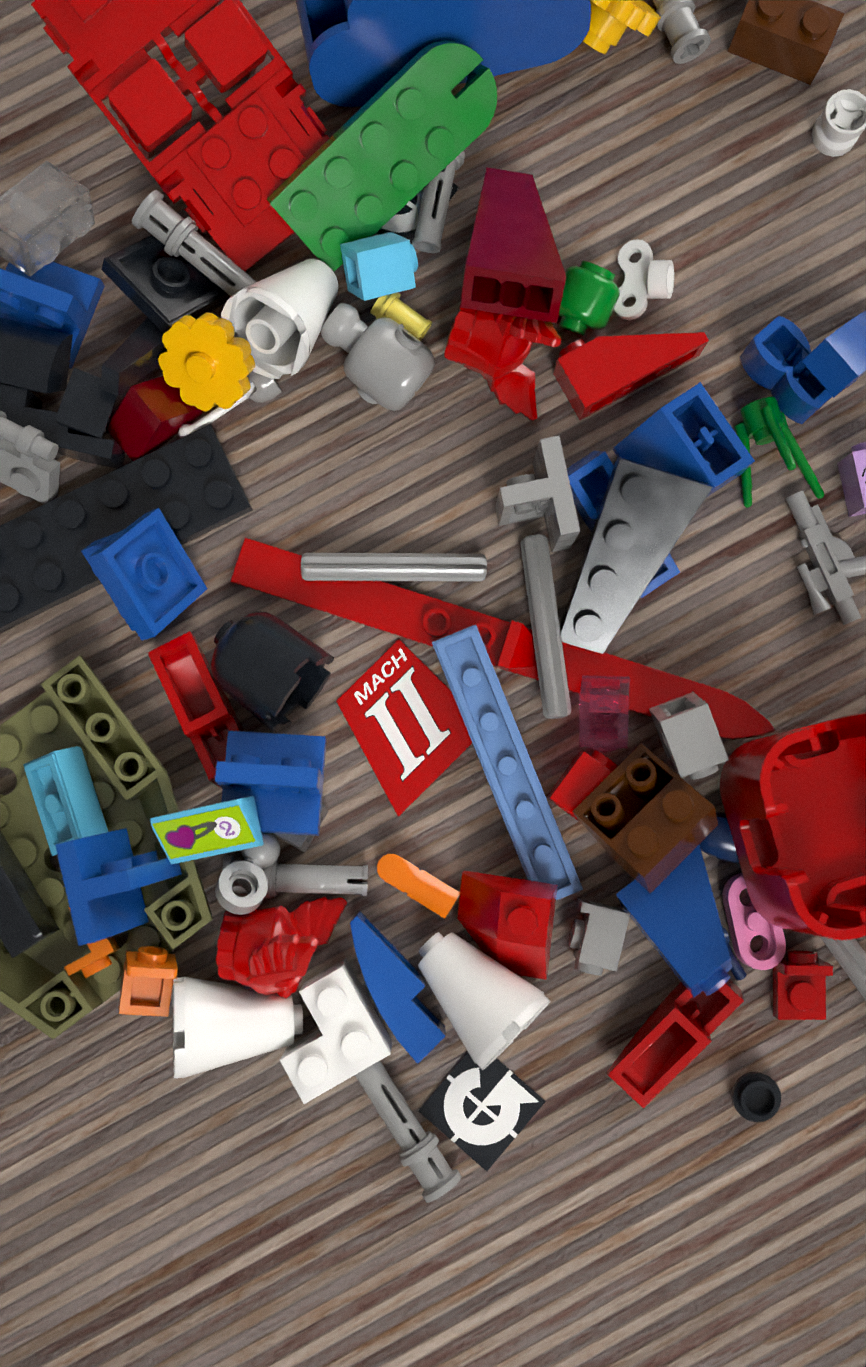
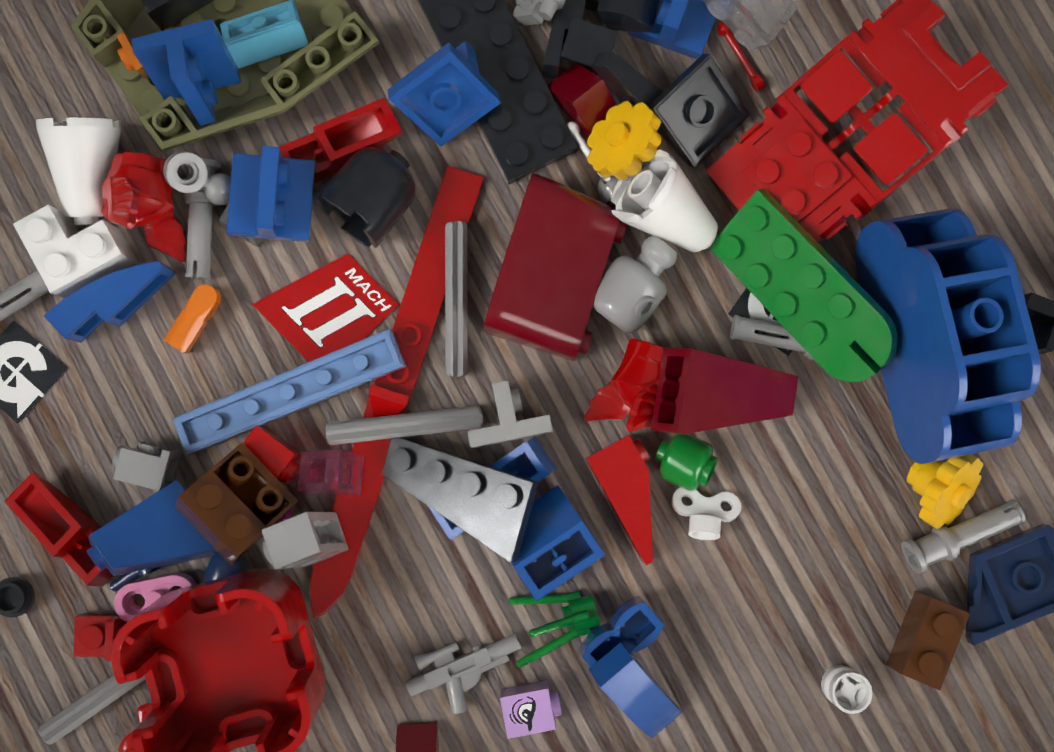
camera: 90 degrees right, 0 degrees up
(69, 254) = (755, 80): none -> red hinge
(147, 982) = (116, 100): orange bracket -> none
(182, 239) = (731, 119): light grey pin -> none
(209, 830) = (230, 144): slope -> none
(360, 447) = (552, 269): none -> dark red windscreen
(379, 265) = (711, 285): medium azure brick -> none
(392, 307) = (671, 305): light yellow pin -> none
(479, 996) = (97, 367): white cone -> none
(509, 920) = (162, 394): red slope -> none

